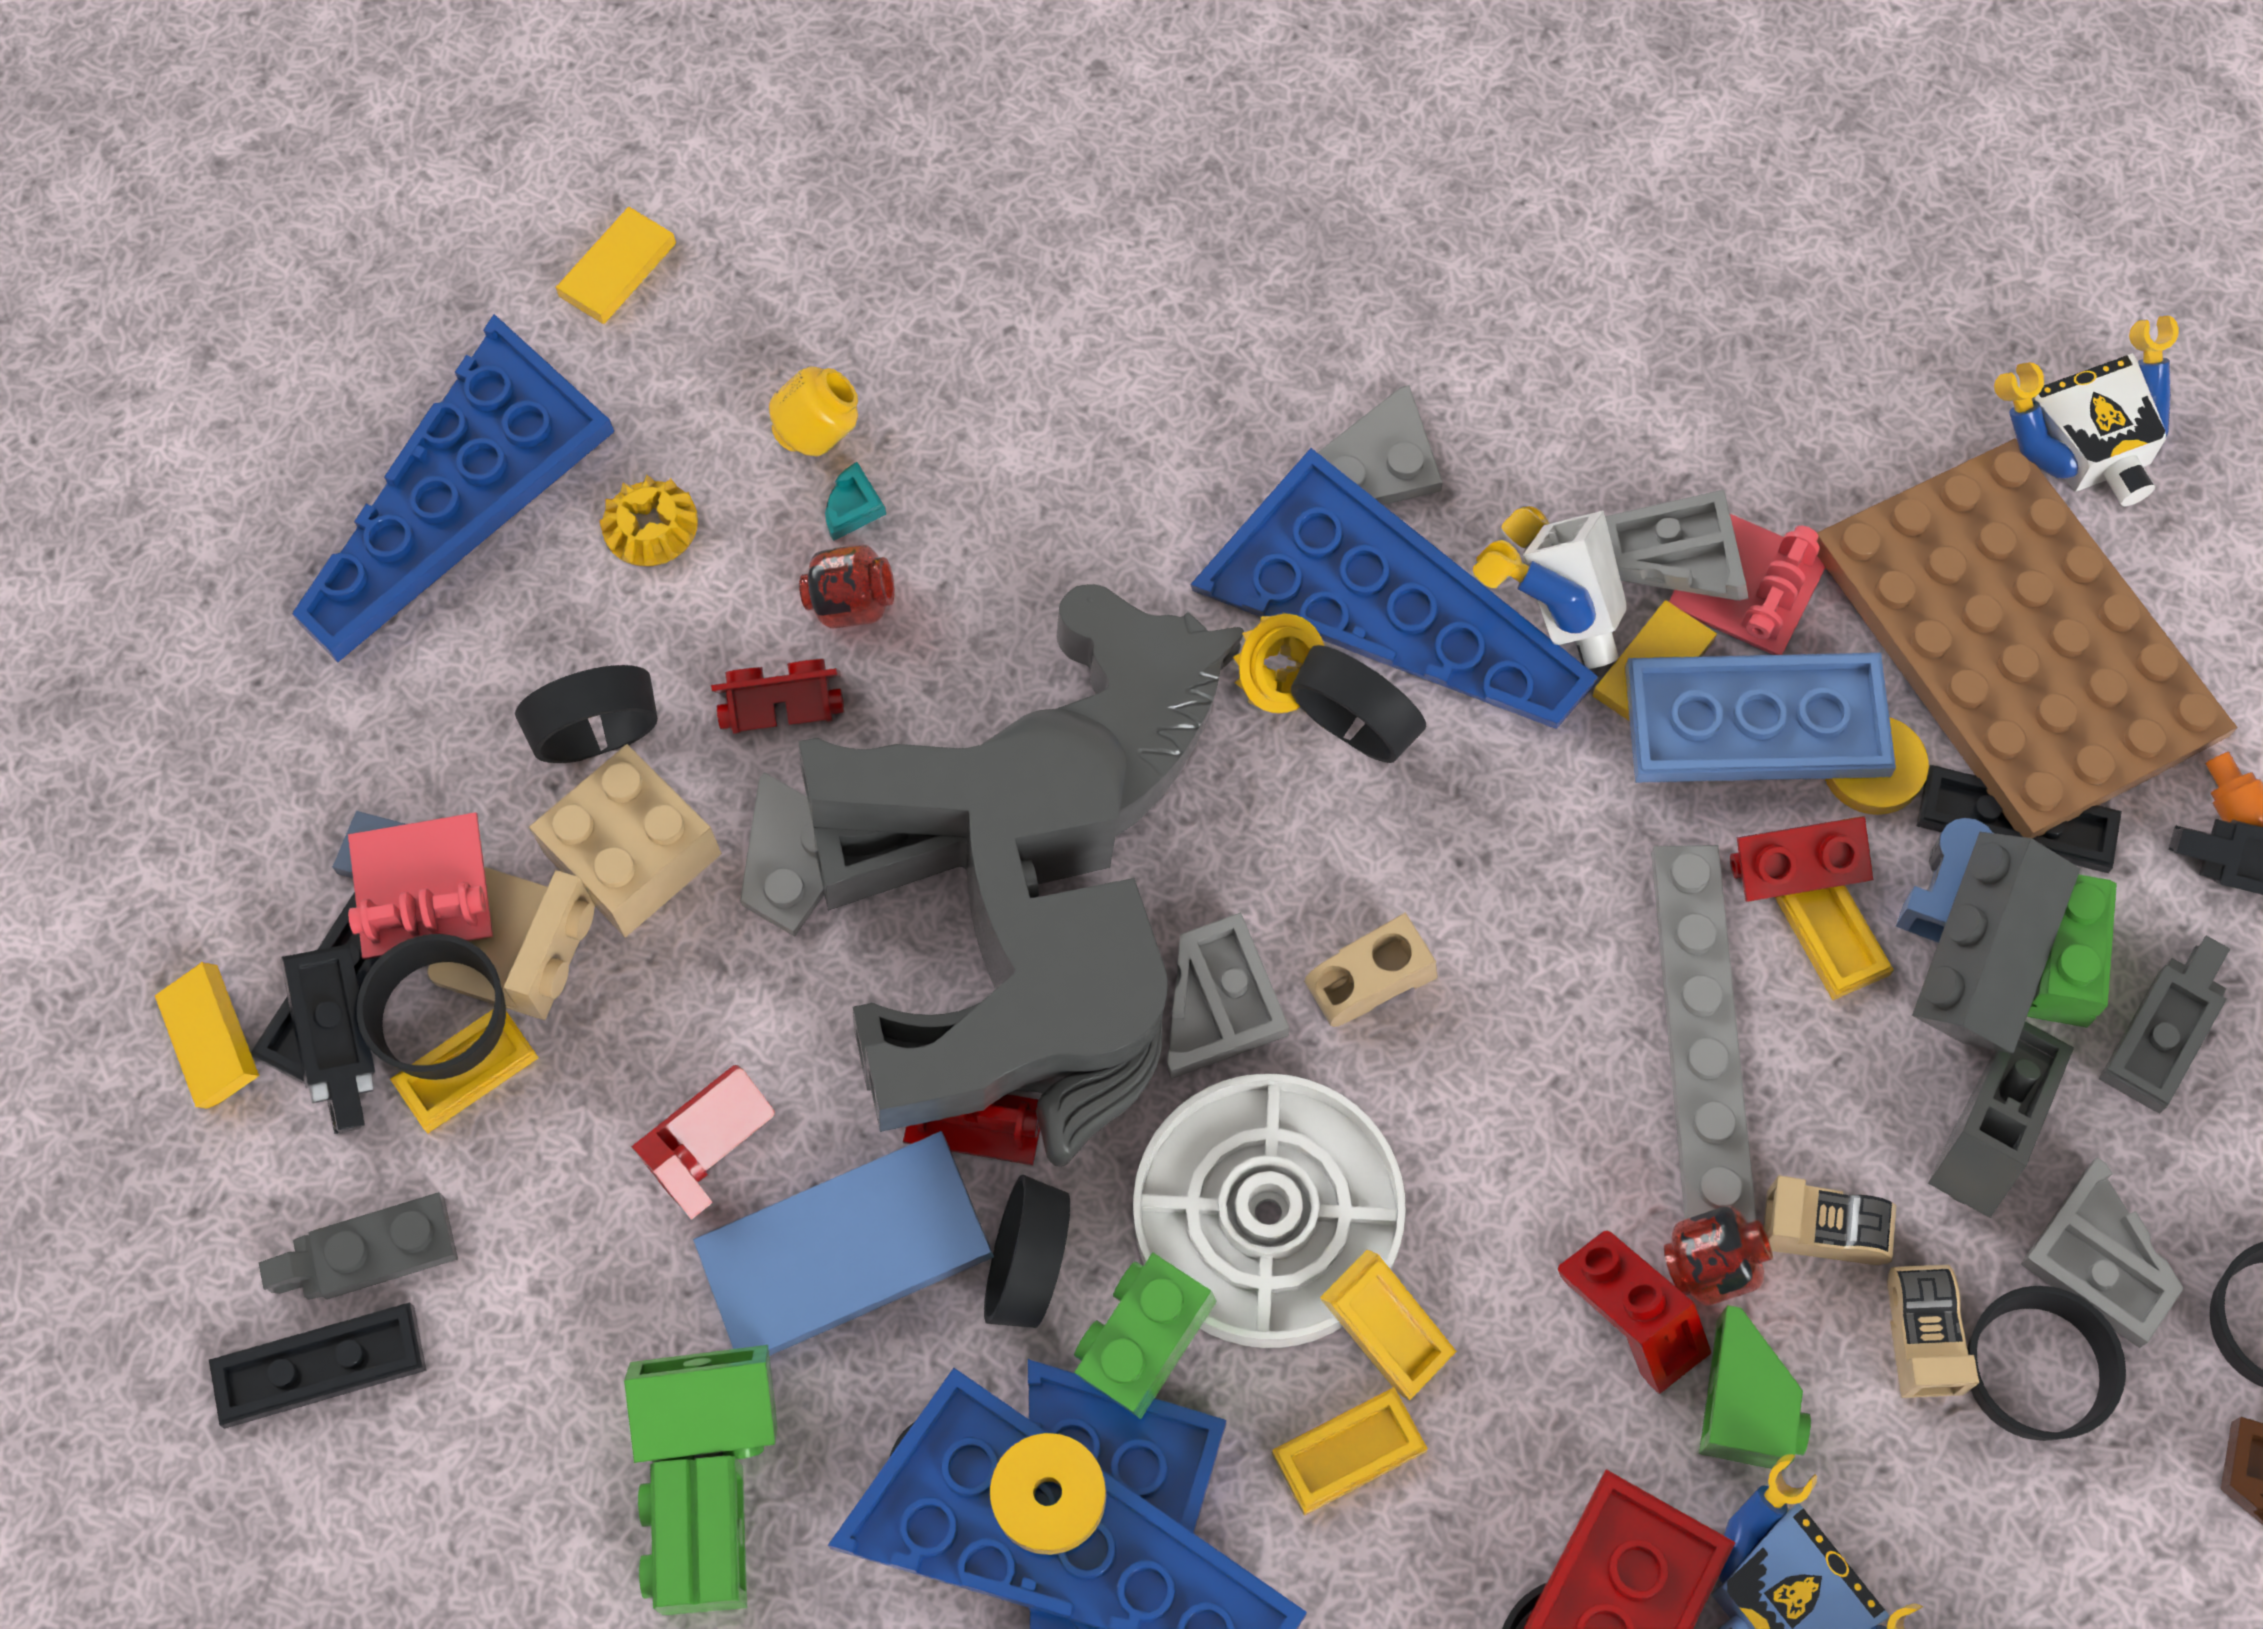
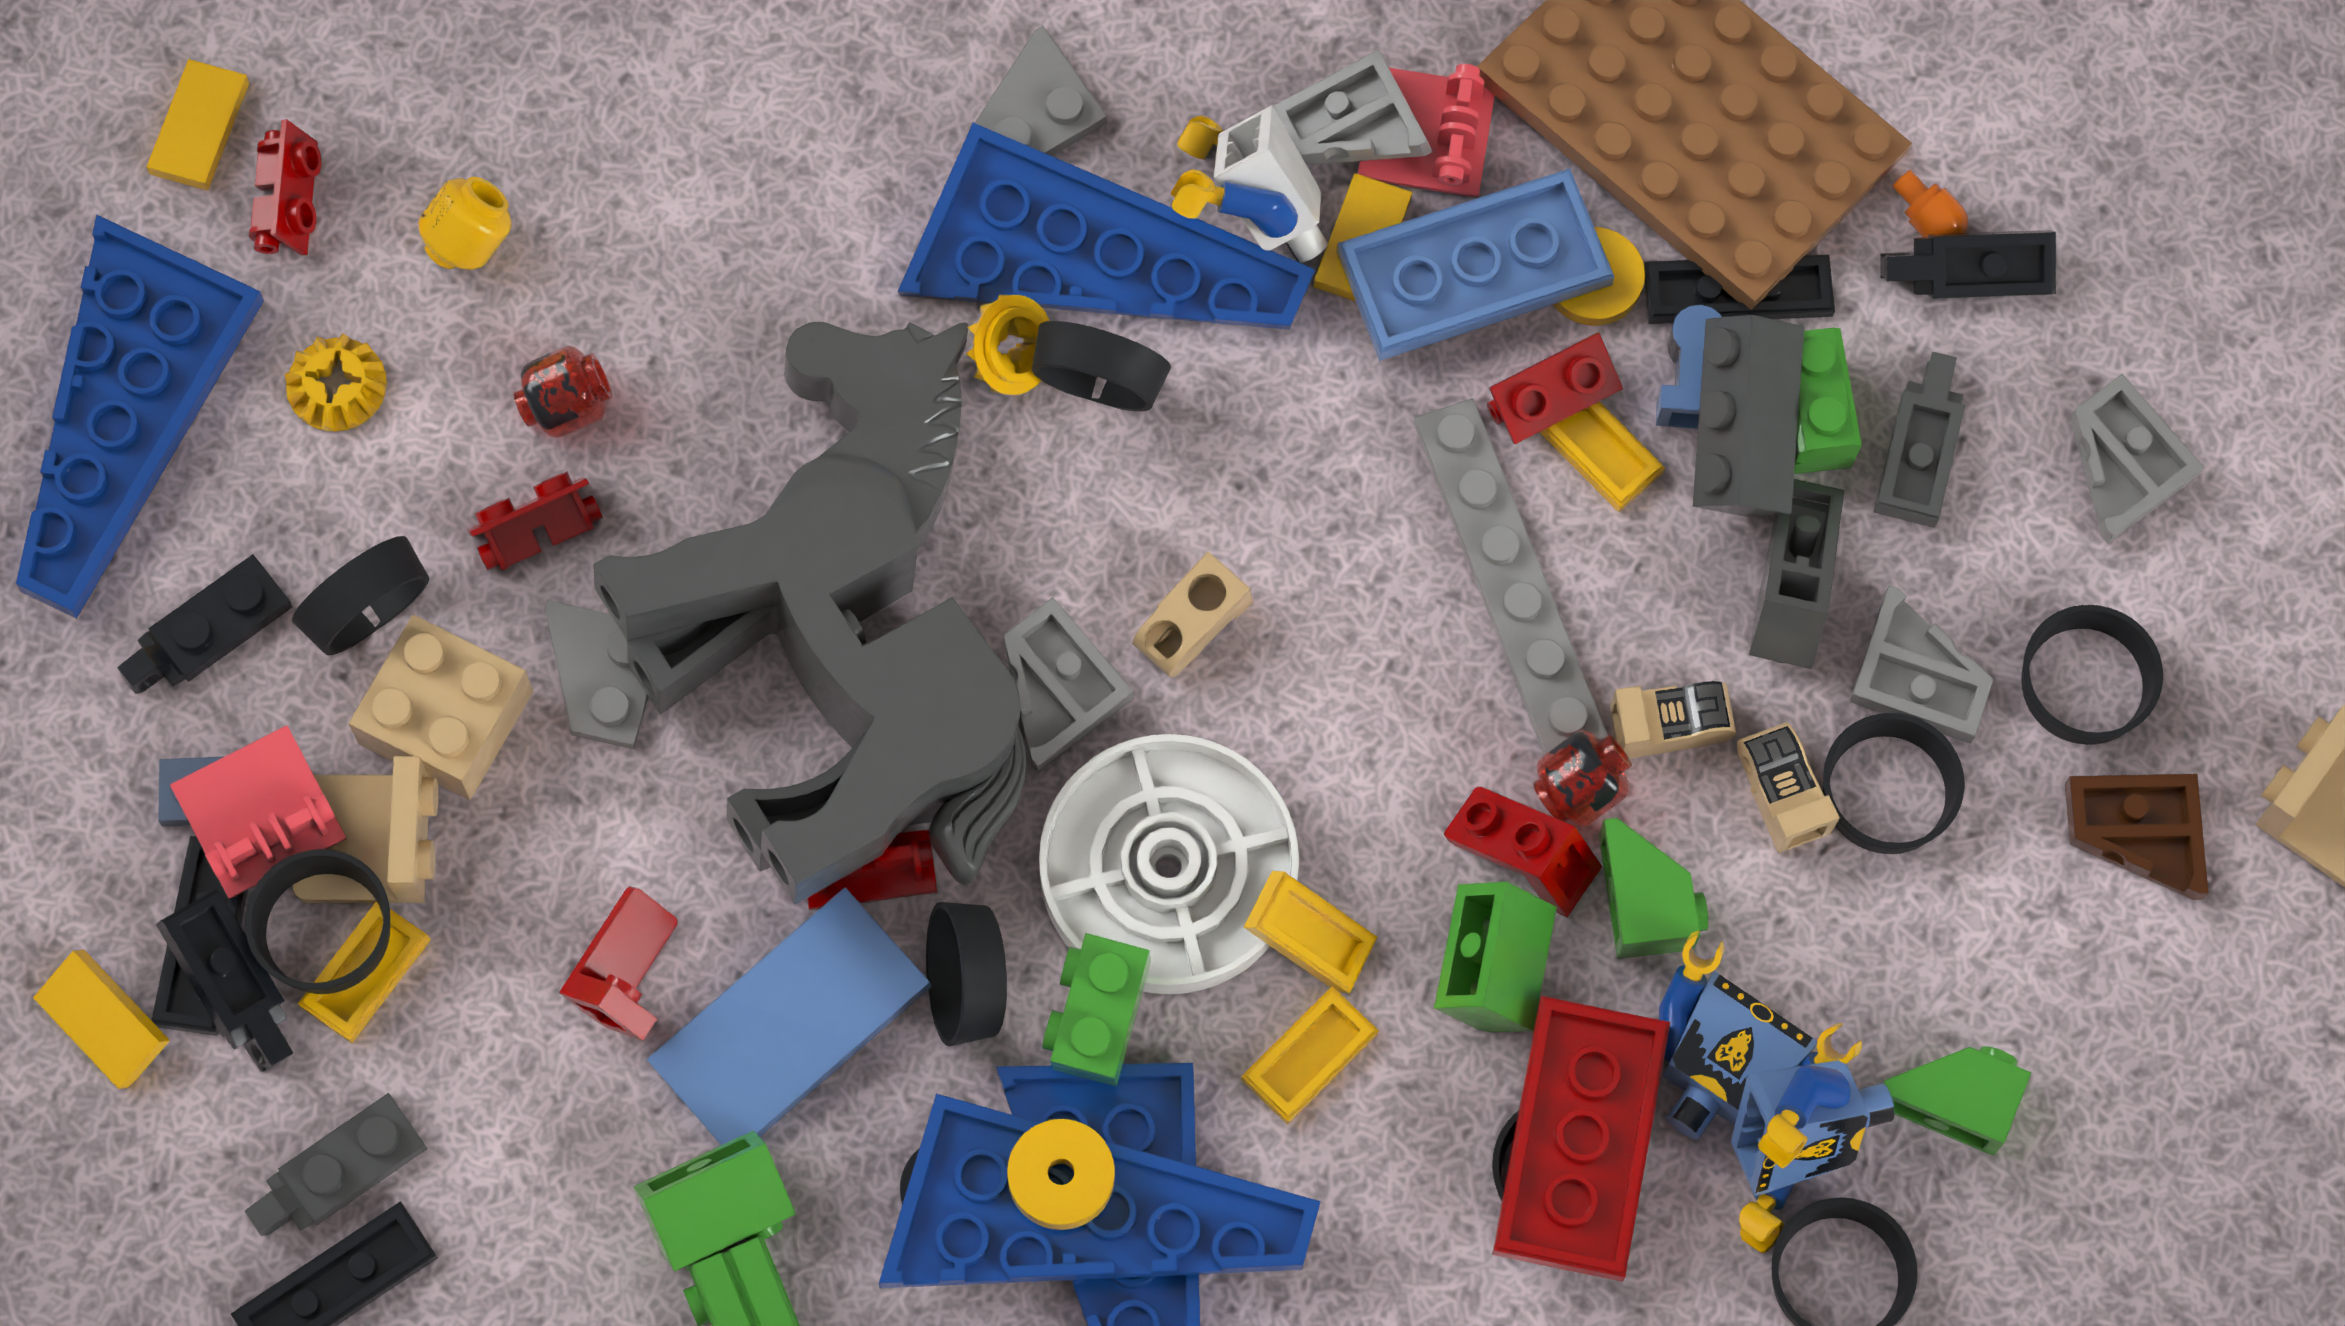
camera: 25 degrees left, 5 degrees up
(444, 705) = (206, 627): none -> black hinge
(675, 333) = (288, 165): none -> red hinge
(852, 503) = (533, 304): teal tile -> none
(1571, 1419) = (1495, 957): none -> bright green brick

